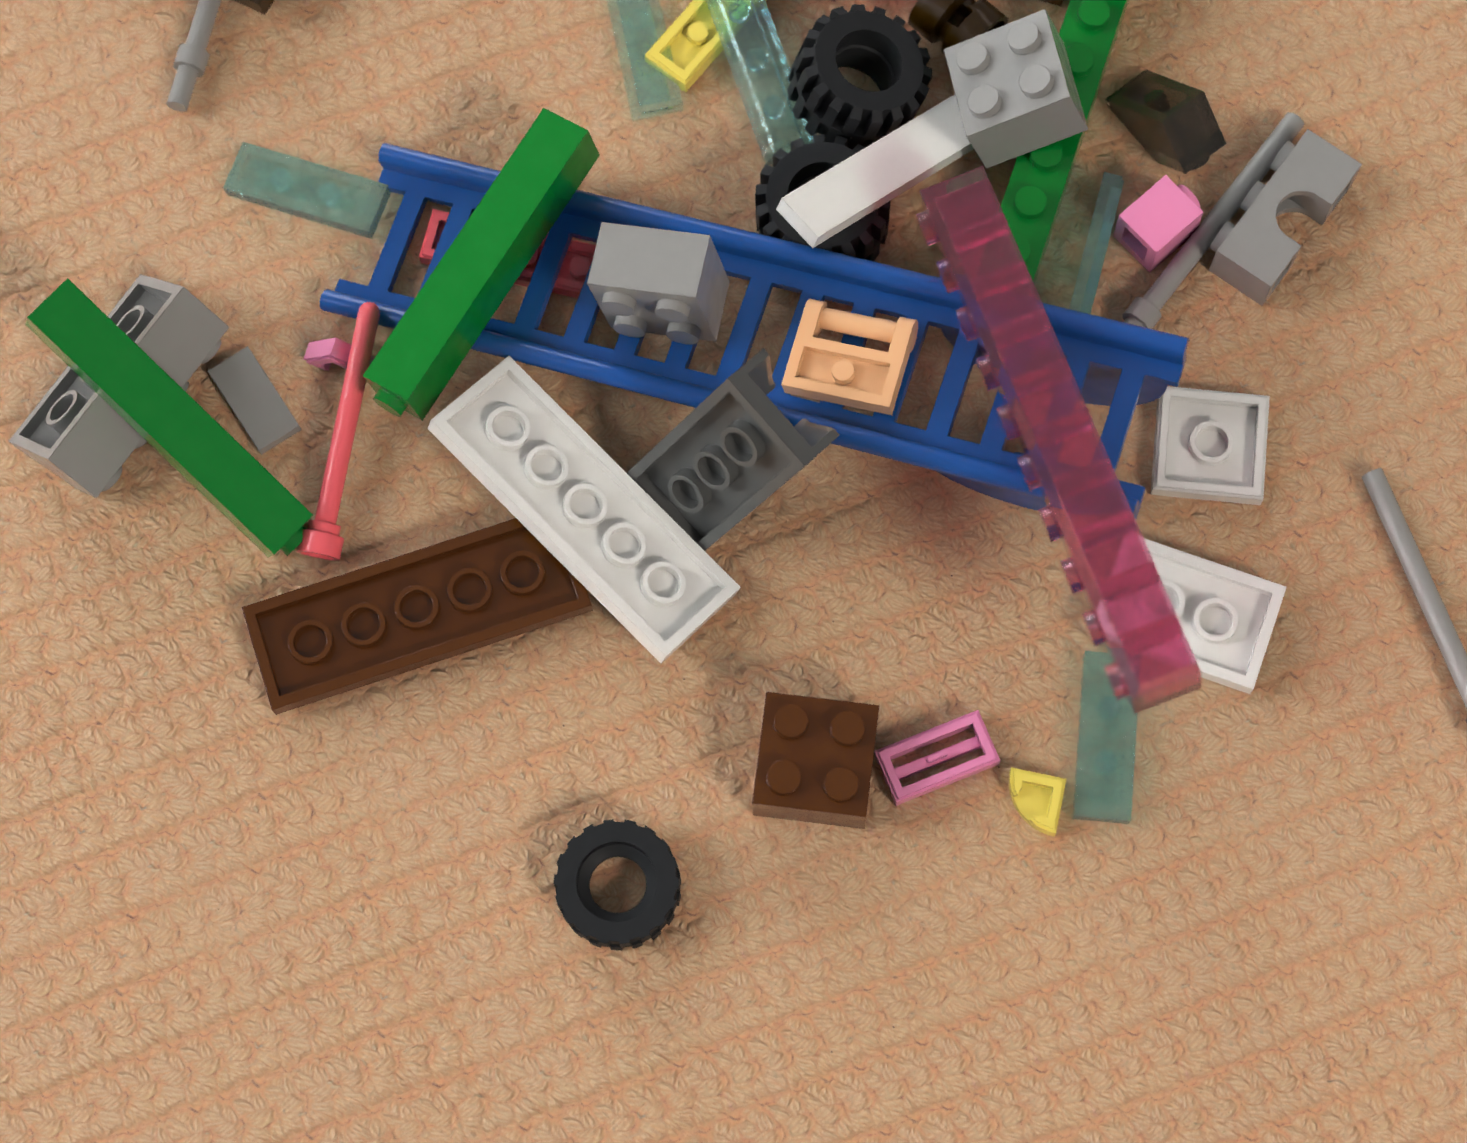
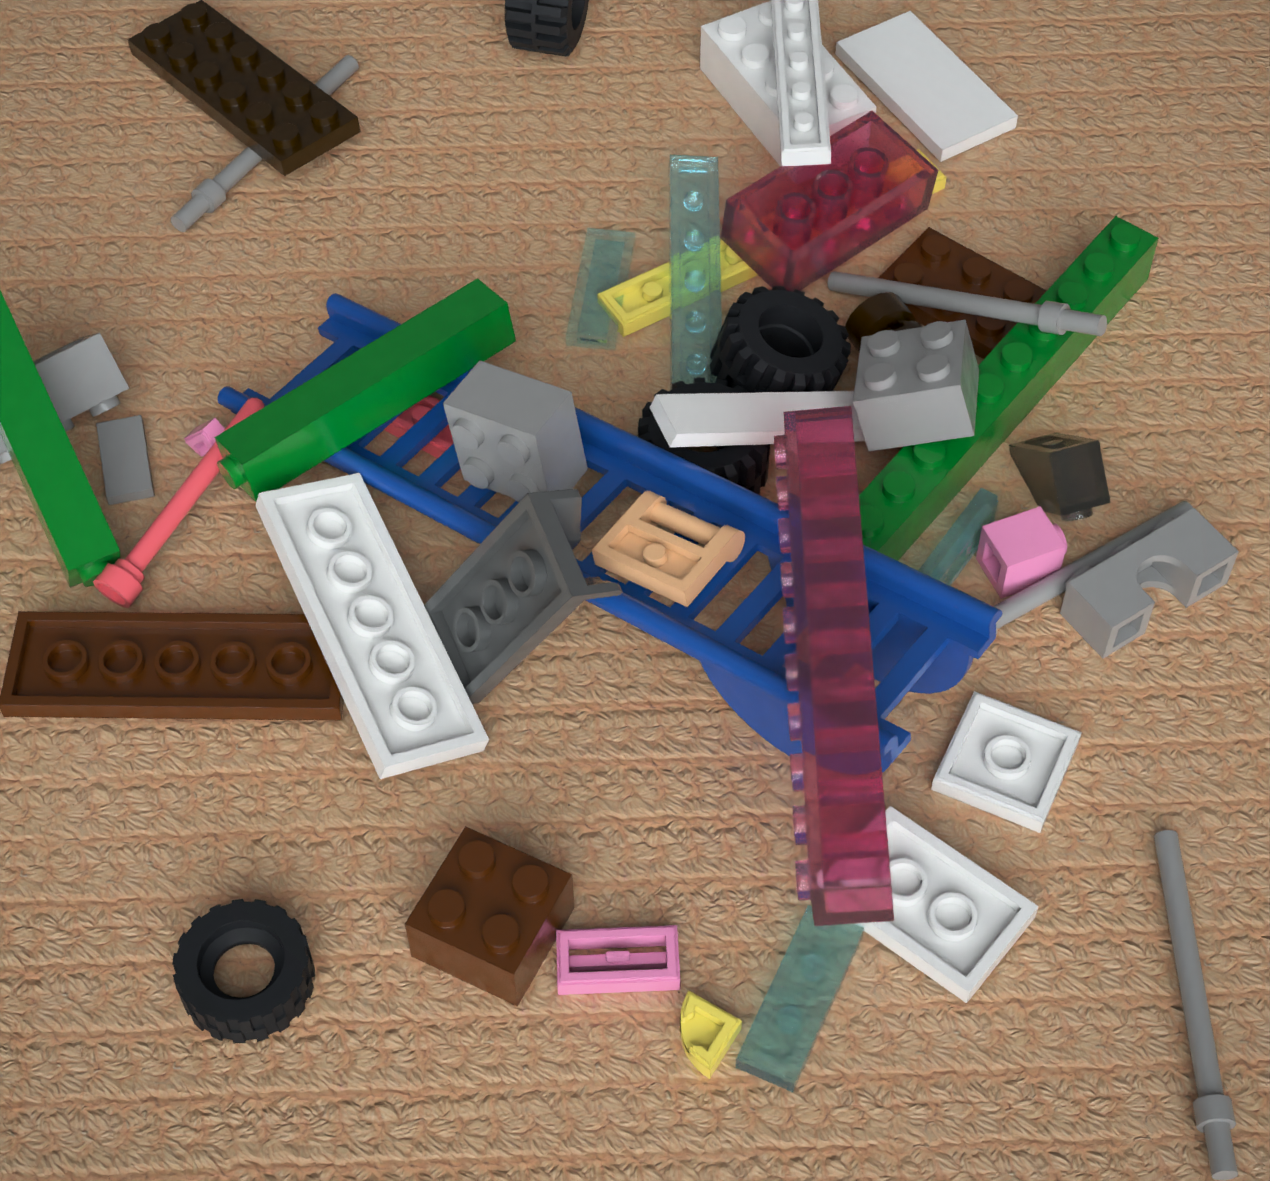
camera: 15 degrees right, 20 degrees down
(307, 190) = (256, 314): clear light blue tile -> none

